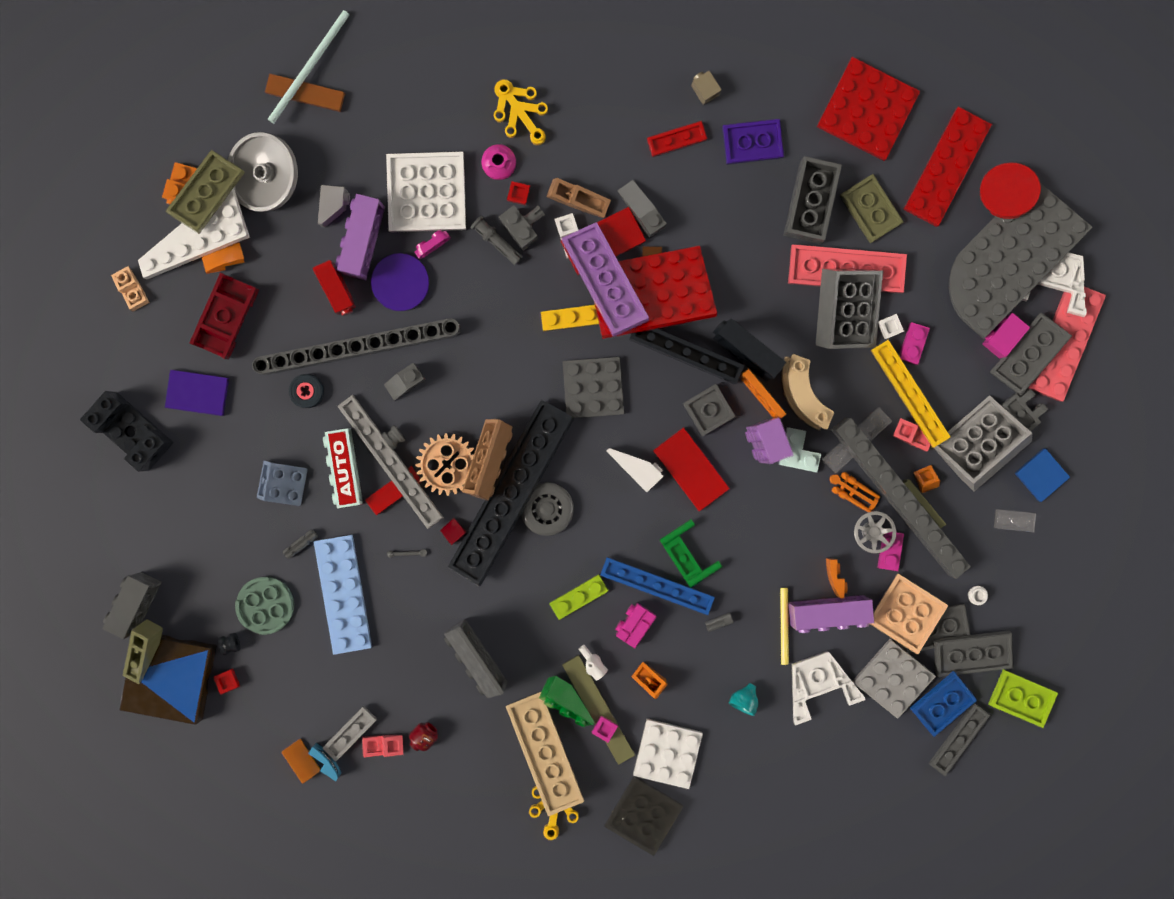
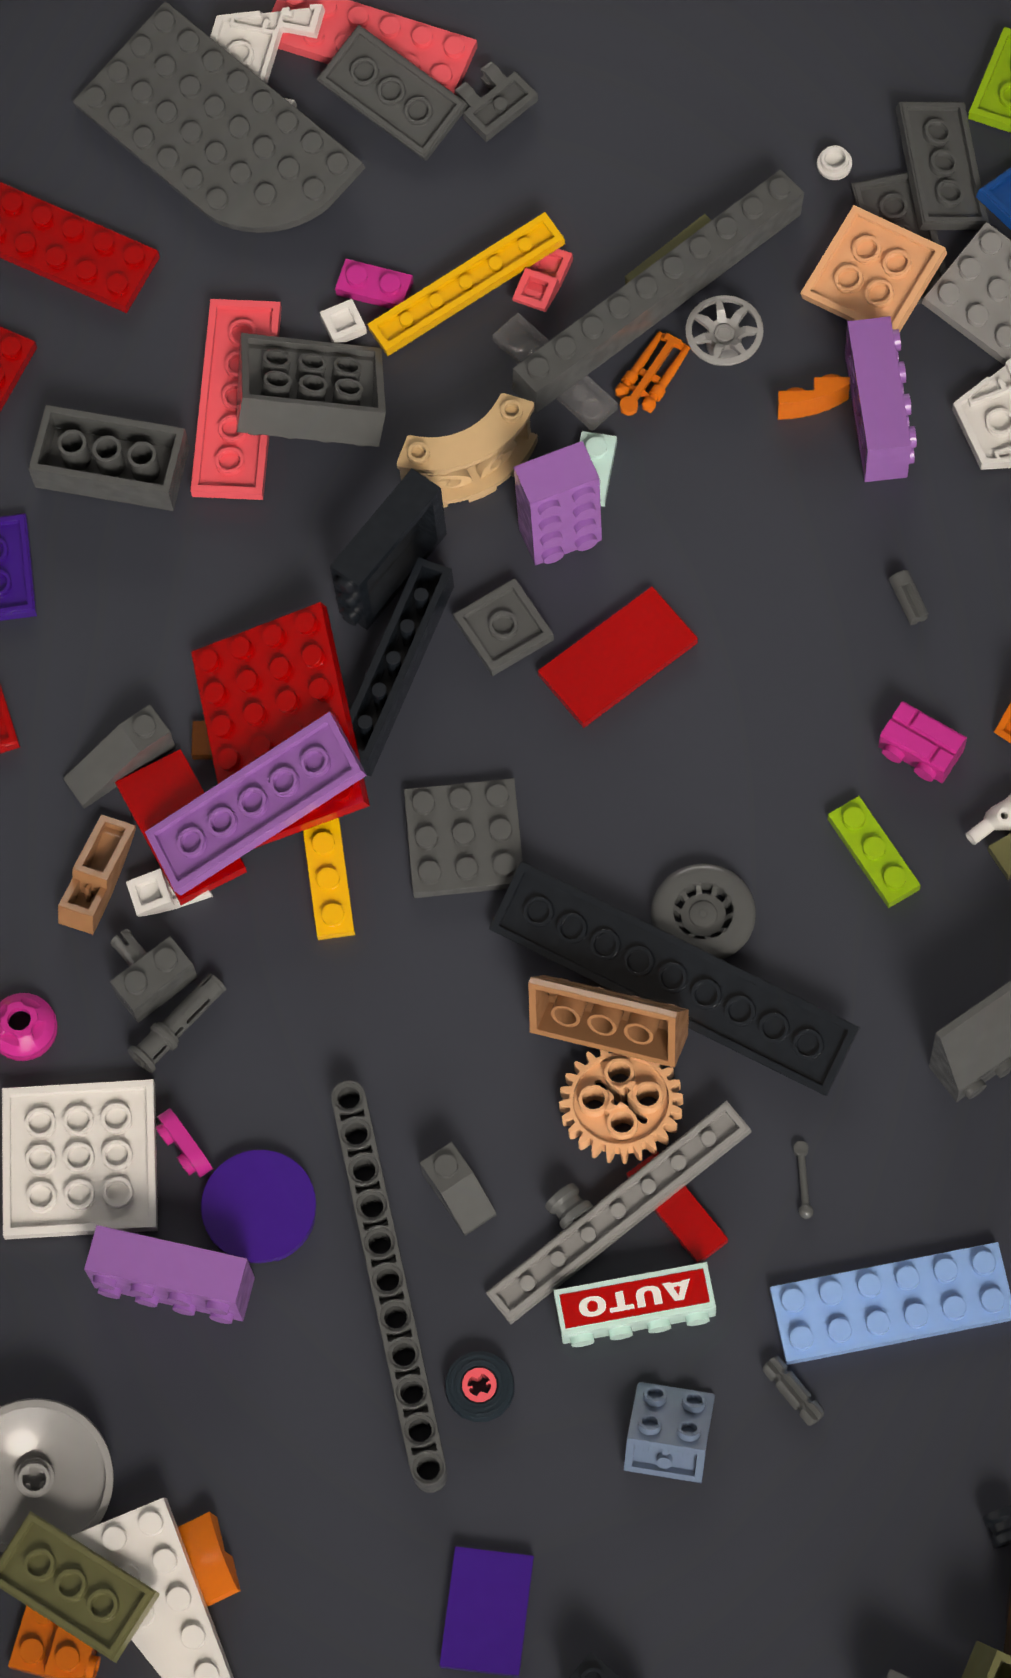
camera: 80 degrees left, 20 degrees down
(223, 316) = (329, 1551): dark red piece -> none
(264, 605) = (923, 1461): sand green tile -> none
(332, 203) = (97, 1340): light grey slope -> none
(334, 288) = (271, 1325): red slope -> none
(453, 531) = (755, 1089): dark red slope -> none
(518, 193) = (85, 984): red plate -> none
(640, 470) = (624, 742): white slope -> none
(657, 586) = (844, 708): blue plate -> none
(683, 558) = (787, 663): green plate -> none
(762, 394) = (474, 526): orange tile -> none
(784, 626) = (909, 484): light yellow bar -> none
(871, 208) = (125, 363): olive tile -> none
(891, 557) = (774, 308): dark pink plate -> none
(927, 479) = (622, 254): orange slope -> none
(983, 443) = (554, 162): light grey slope -> none
(1005, 335) = (361, 132): dark pink brick -> none
(1010, 190) = (96, 135): red tile -> none
(1014, 520) = (694, 108): clear plate -> none
(1042, 475) = (610, 69): blue tile -> none

